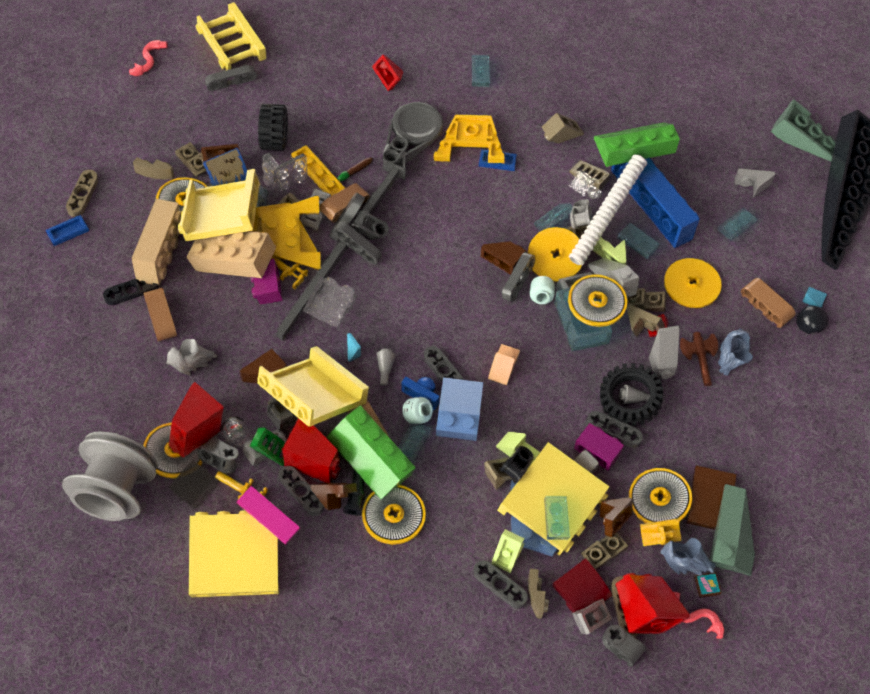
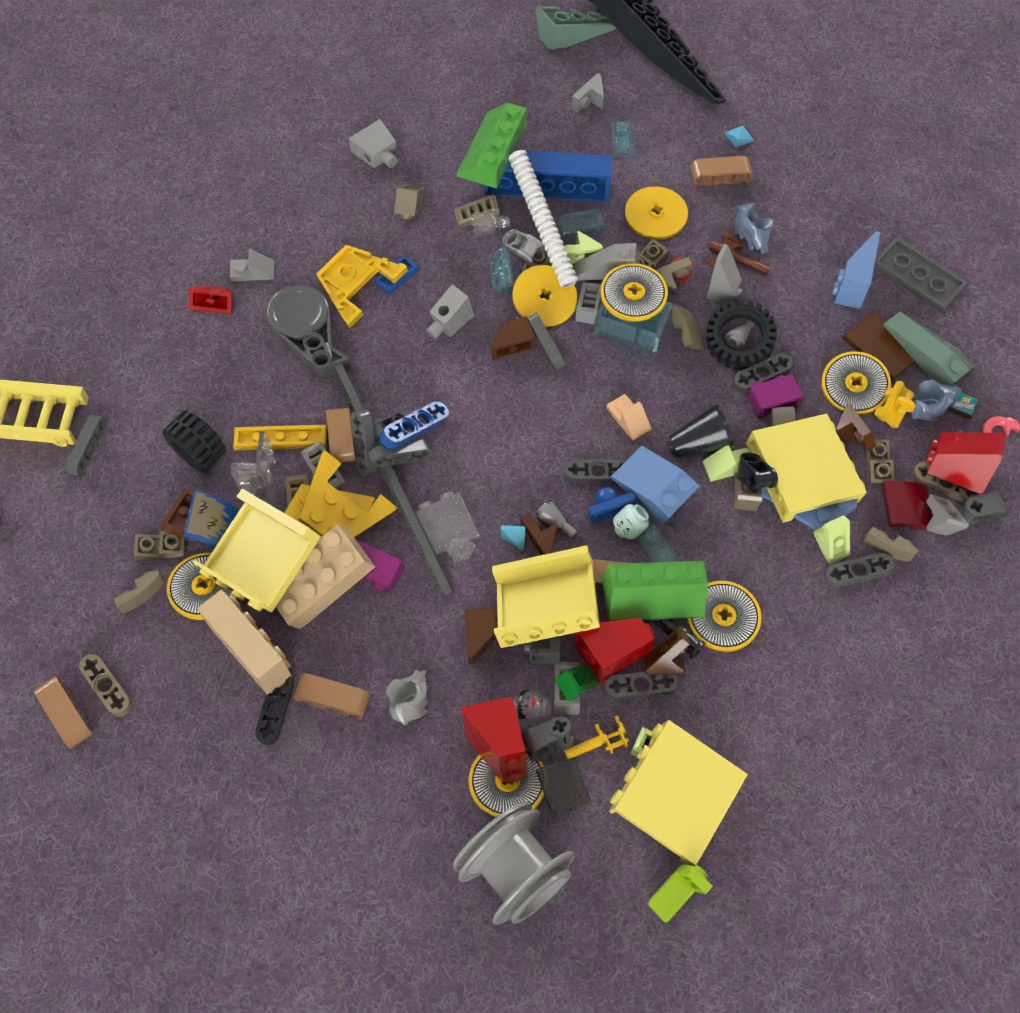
camera: 50 degrees left, 5 degrees up
(48, 182) = (62, 712): none -> medium nougat beam
(67, 230) = (141, 730): blue tile -> none
(165, 596) = (678, 890): none -> lime bracket
(268, 515) = (668, 729): dark pink tile -> none
(287, 270) = (375, 538): yellow piece -> none
(321, 319) = (456, 544): none -> clear plant
(351, 171) = (301, 402): reddish brown piece -> none
(363, 365) = (541, 539): none -> reddish brown slope
(383, 240) = (414, 424): none -> blue beam
(431, 79) = (254, 268): none -> light grey slope
(480, 70) = (281, 220): clear light blue plate -> none
(489, 206) = (450, 313): none -> light grey torso
(525, 416) = (701, 435): none -> black cone
(542, 290) = (576, 332): light aqua head -> none
(556, 518) = (837, 475): clear light blue plate -> none
(588, 83) = (375, 145): none -> light grey torso
(608, 357) = (686, 322): none -> dark tan slope
(755, 440) = (857, 275): none -> medium blue slope
(802, 491) = (919, 274): none -> dark grey tile
(812, 319) = (761, 152): black hair -> none

